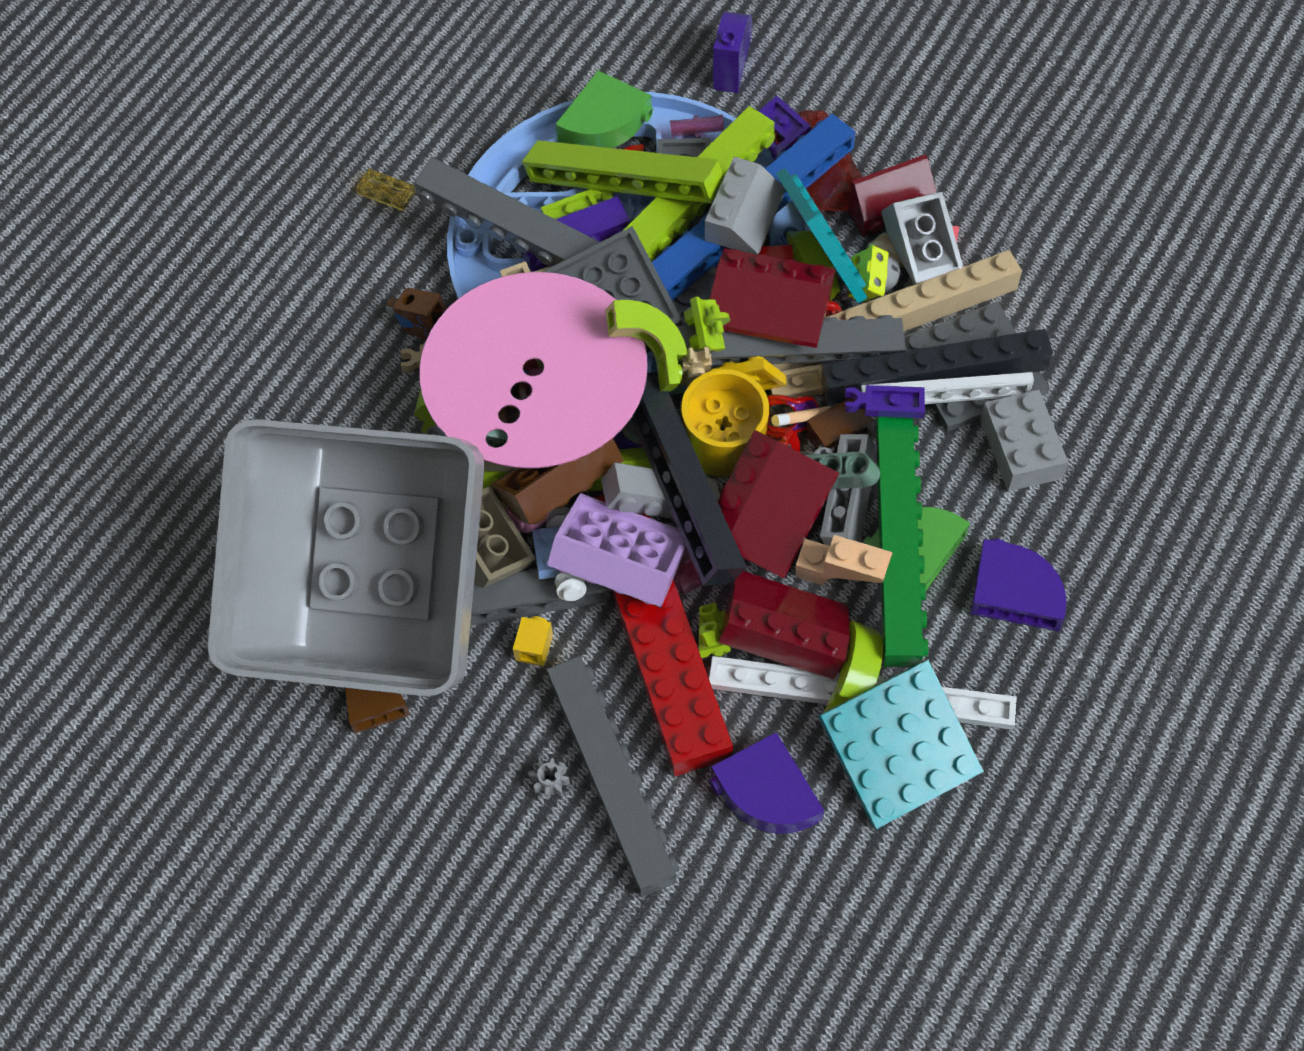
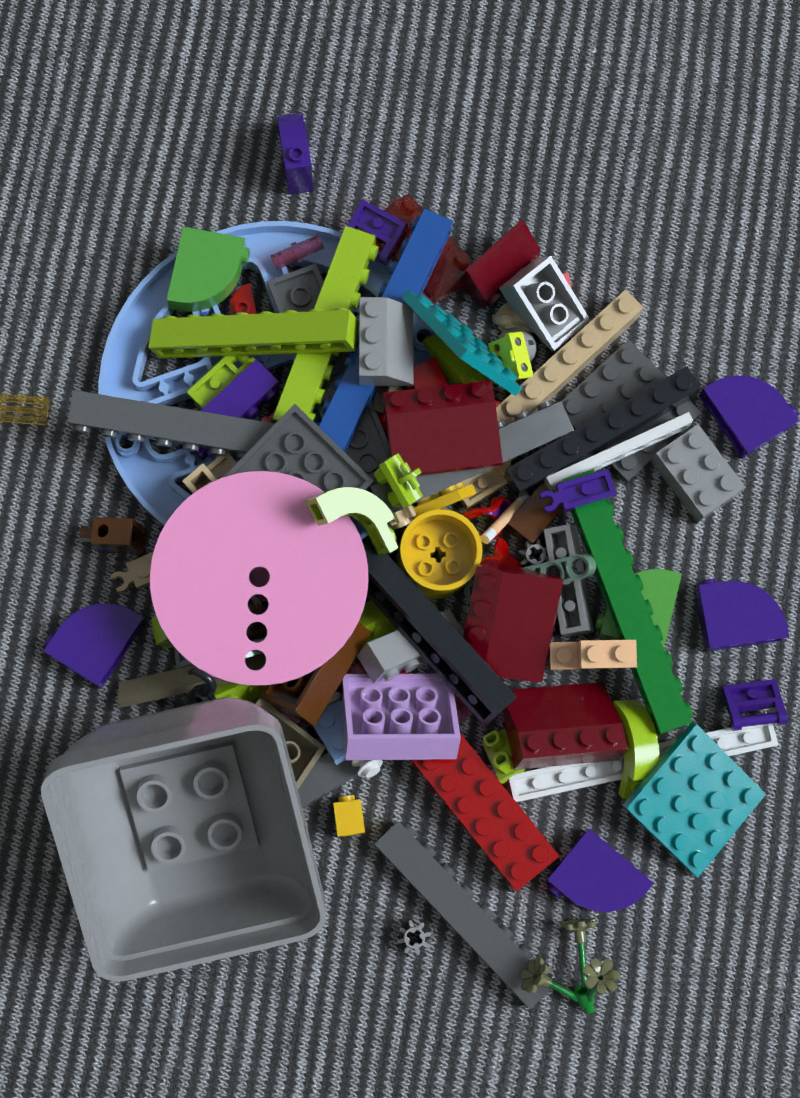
camera: 30 degrees left, 15 degrees up
(361, 396) = (95, 640): none -> dark purple brick
(719, 865) = (594, 978): none -> olive plant
(1004, 669) = (752, 697): none -> dark purple plate
(1099, 401) = (748, 411): none -> dark purple brick

